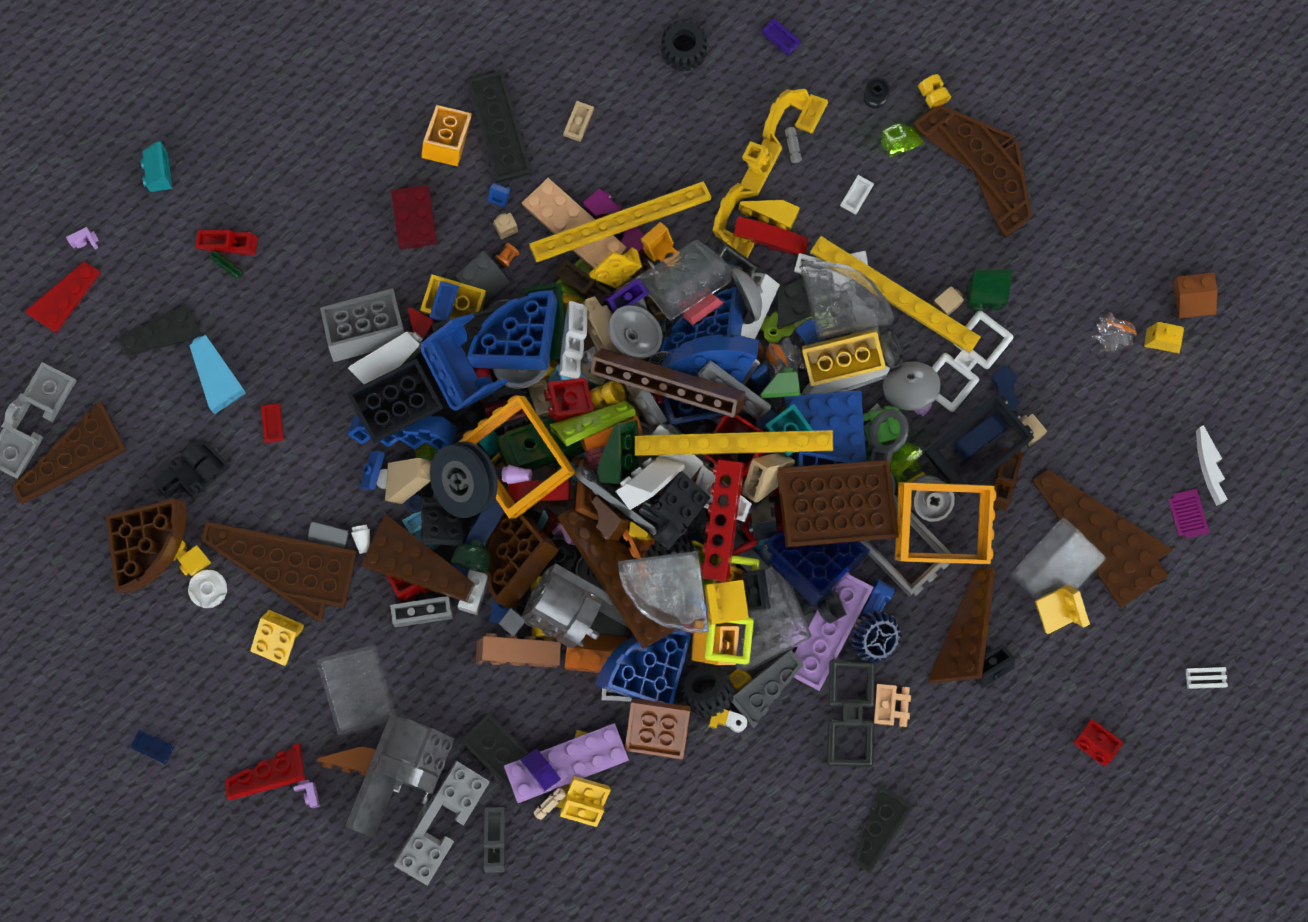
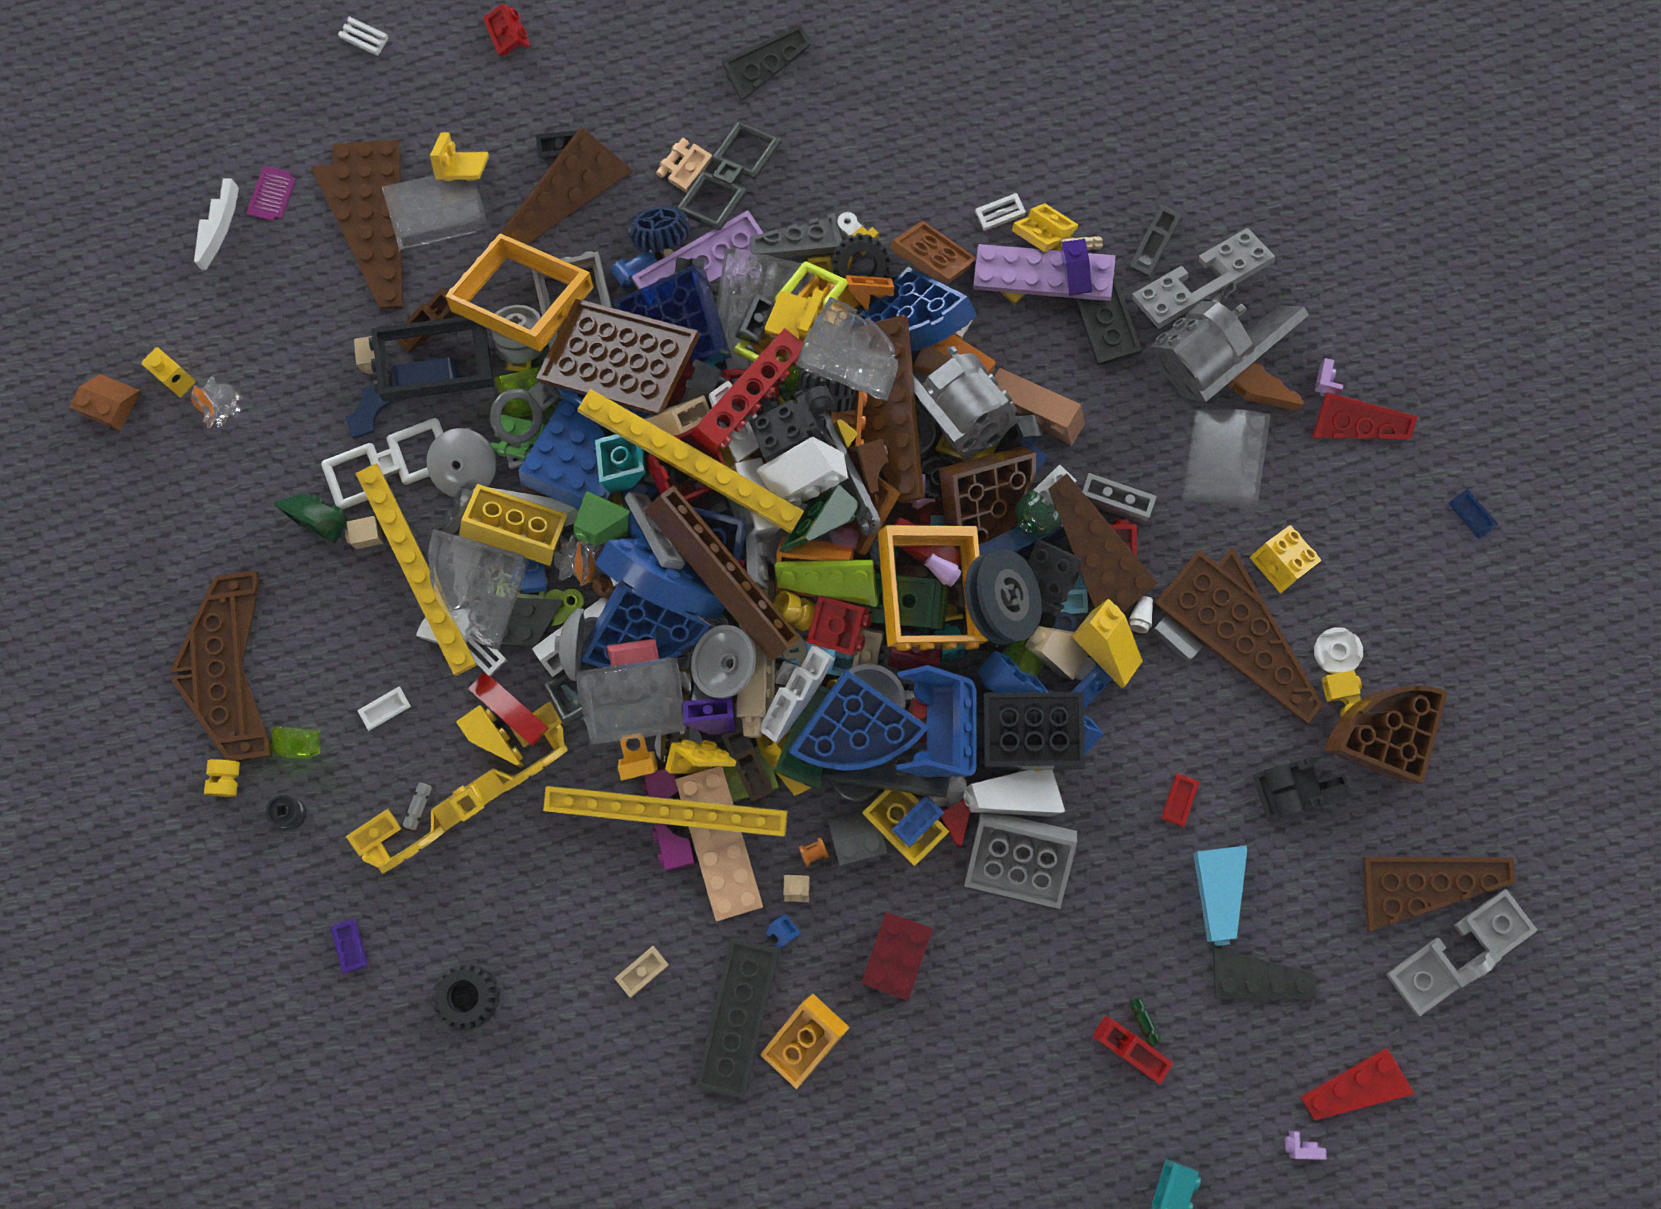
camera: 145 degrees left, 0 degrees up
(374, 499) = (1110, 642): none -> yellow slope
(616, 813) = (982, 219): none -> white tile
(692, 667) = (863, 287): none -> orange slope

